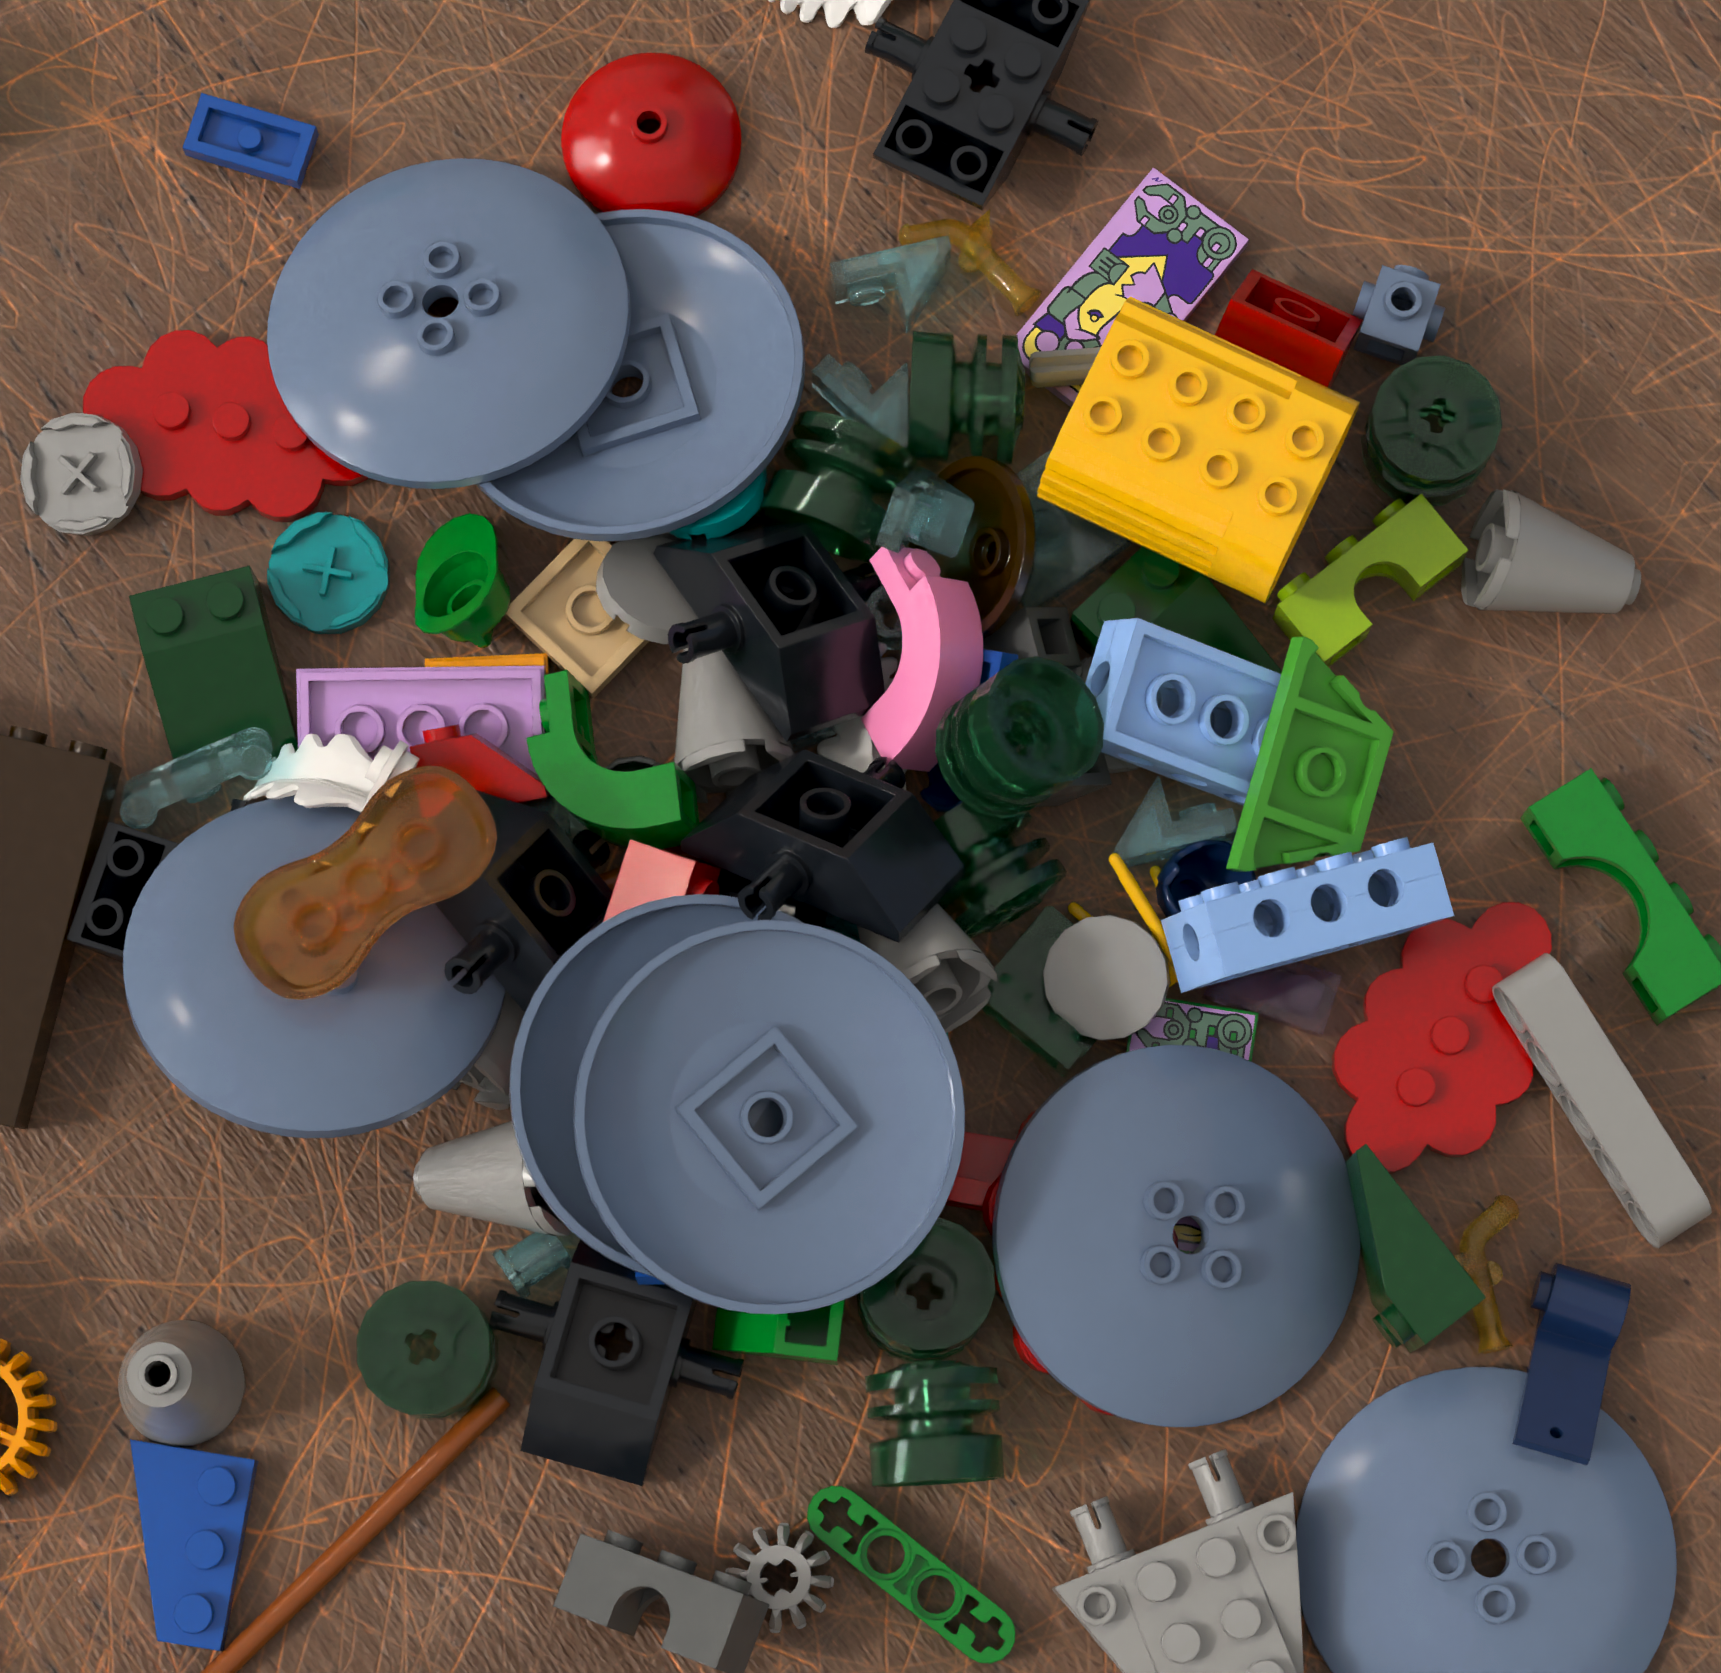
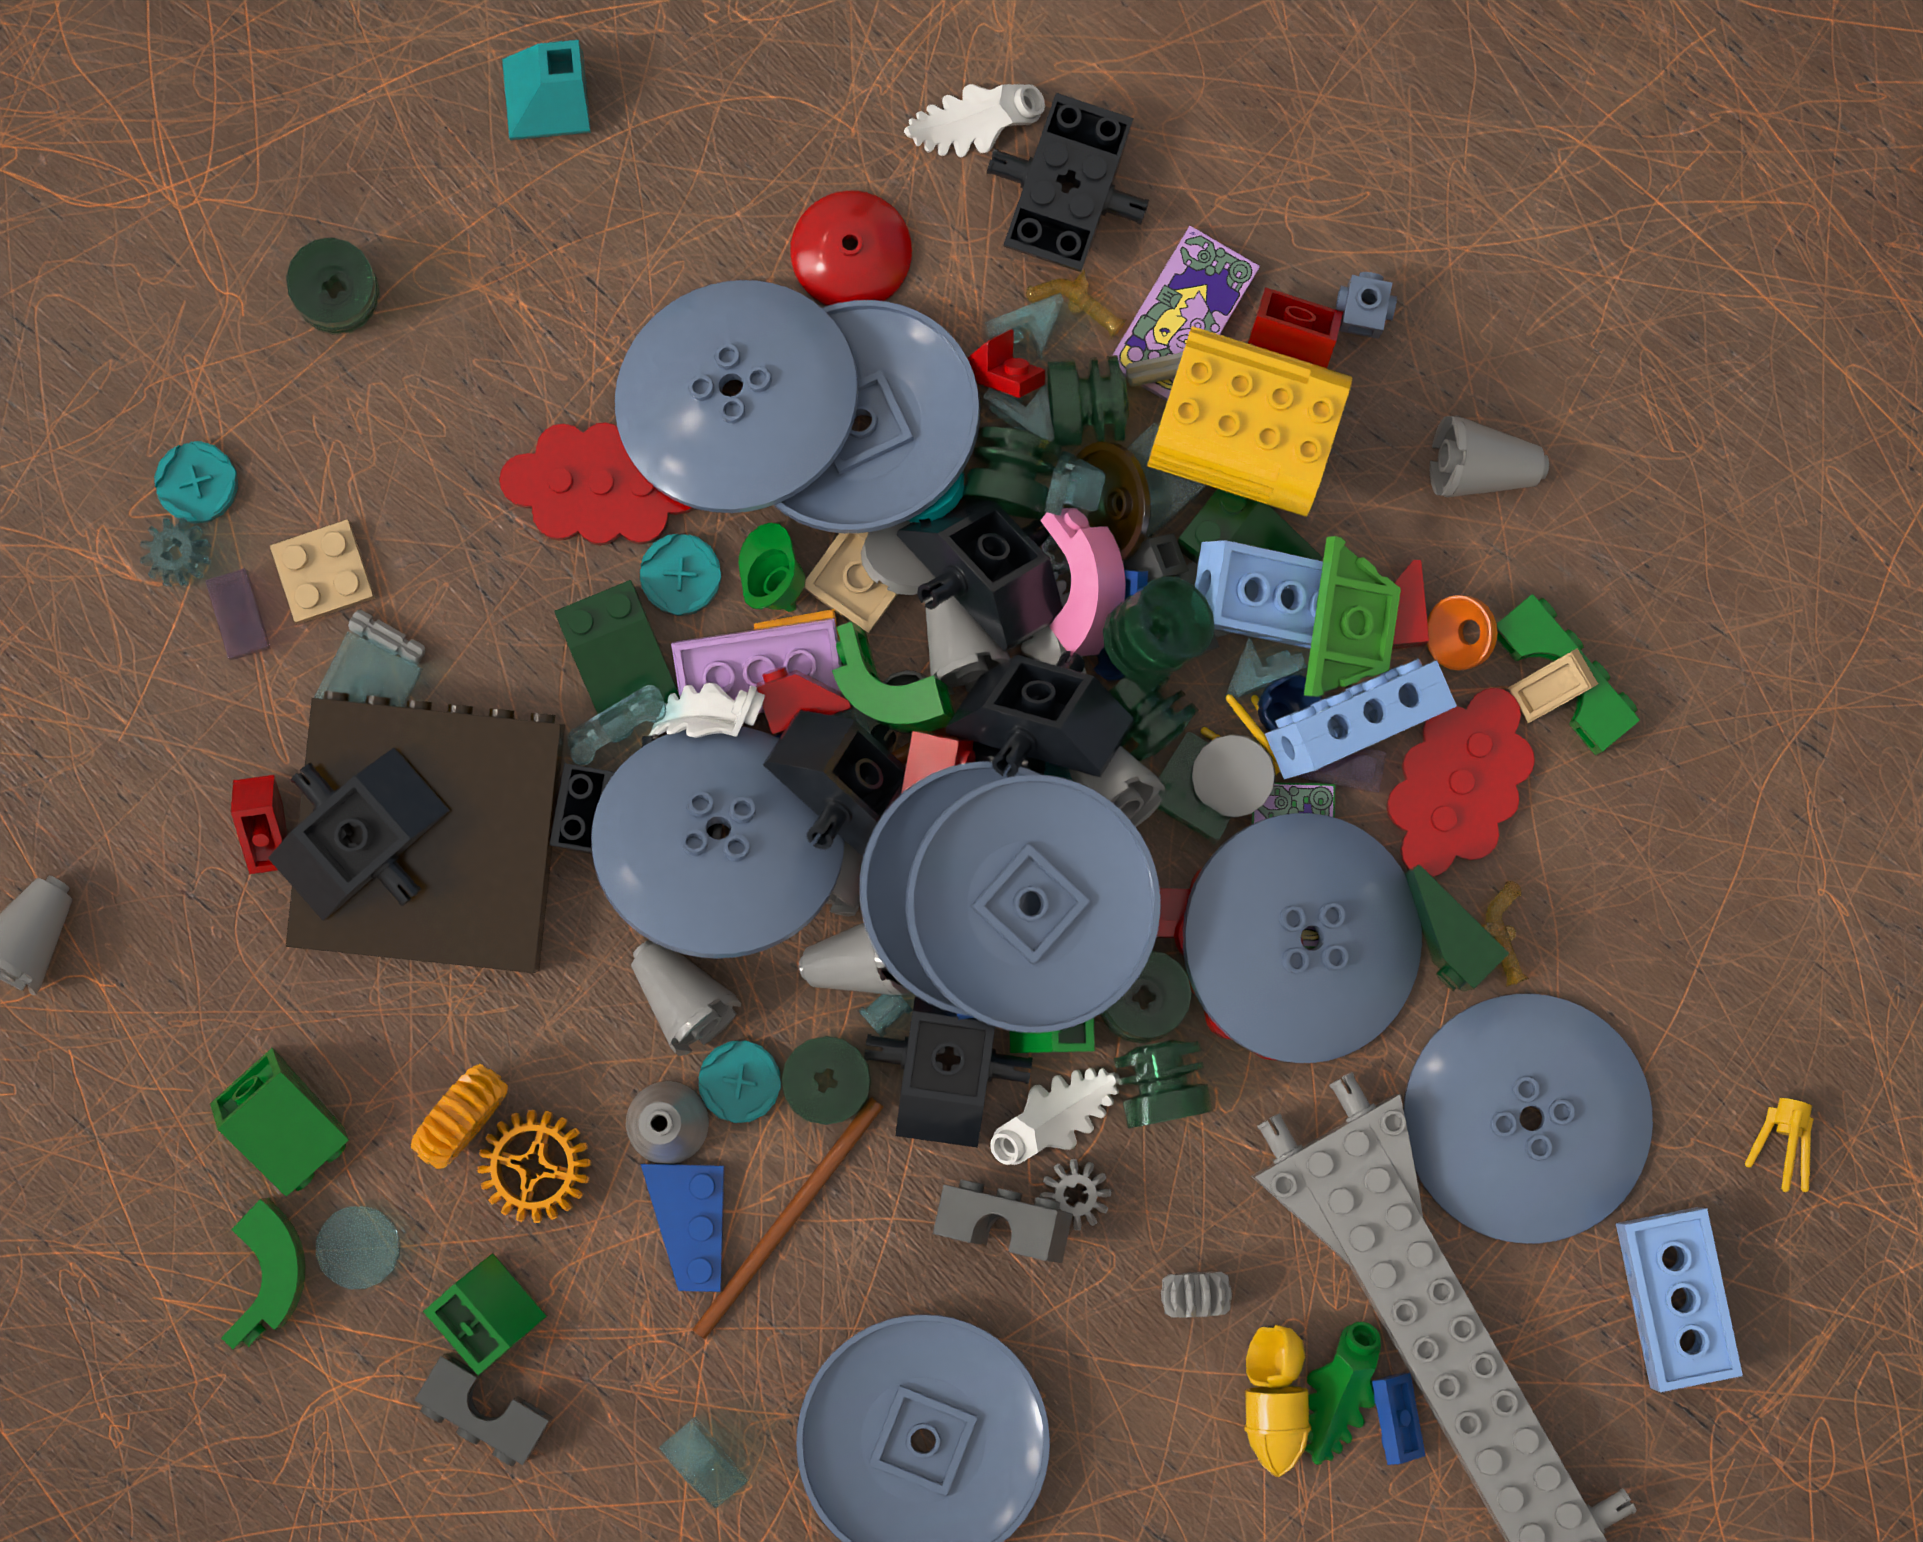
camera: 10 degrees left, 5 degrees up
(81, 474) = (506, 531): light grey tile -> none
(232, 1196) = (682, 997): none -> light grey cone
(250, 140) = (583, 288): blue plate -> none
(299, 1336) = (739, 1081): none -> teal tile
(321, 915) = (772, 760): clear orange plate -> none
(765, 1455) = (1054, 1115): none -> white plant
(837, 330) = (997, 369): none -> red slope
(916, 1567) = (1157, 1183): green beam -> none
(1398, 441) = (1379, 394): clear green wheel -> none
(1404, 779) = (1411, 620): none -> red slope
(1407, 546) = (1393, 460): lime arch -> none
(1455, 808) = (1446, 632): none -> orange piece
(1569, 1360) = (1566, 983): dark blue door -> none
(1601, 1100) = (1566, 811): light grey beam -> none
(1605, 909) = (1553, 685): none -> tan tile

